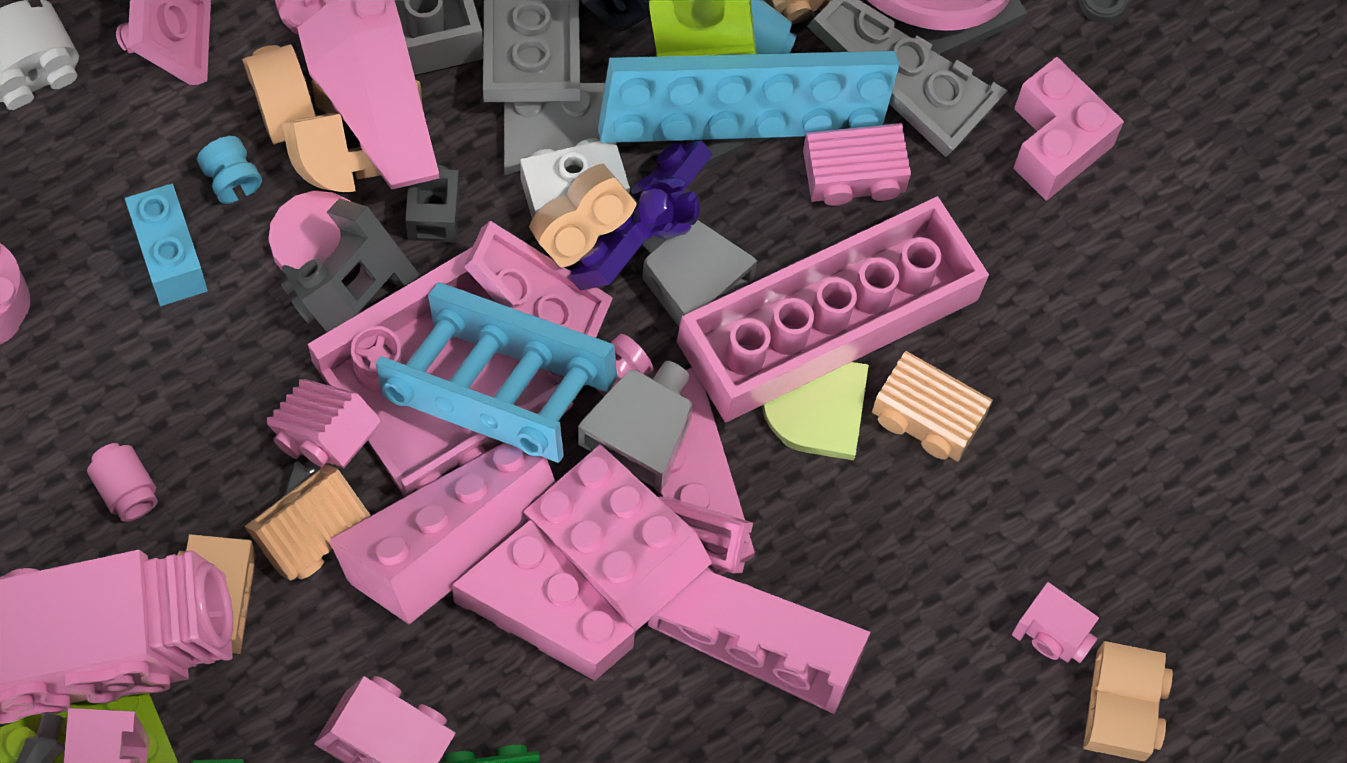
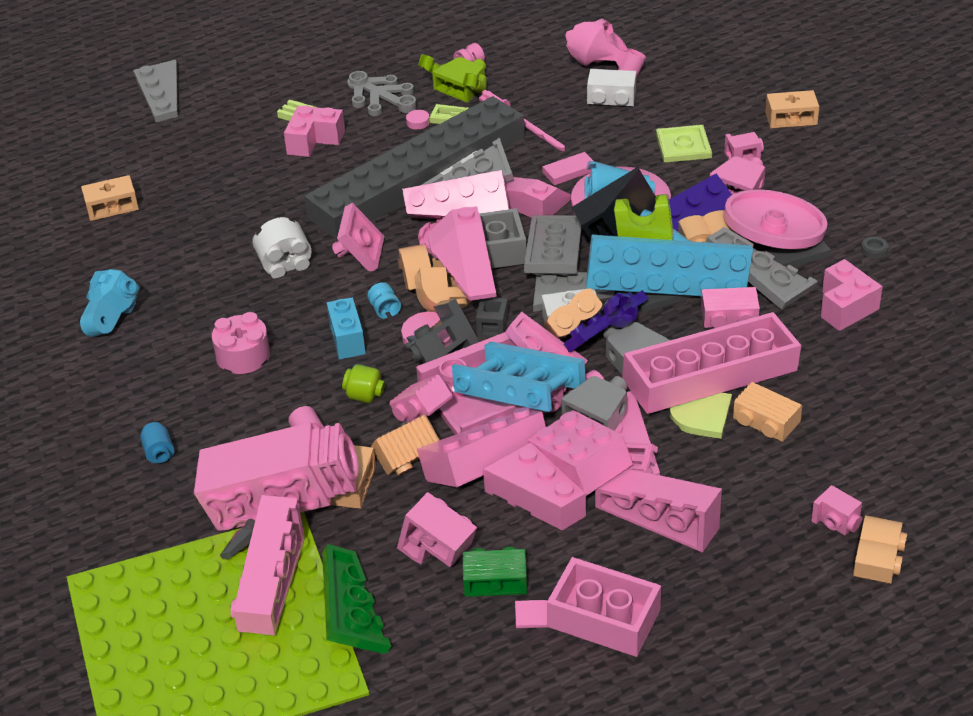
camera: 15 degrees right, 25 degrees down
(213, 377) = (363, 383): none -> lime head

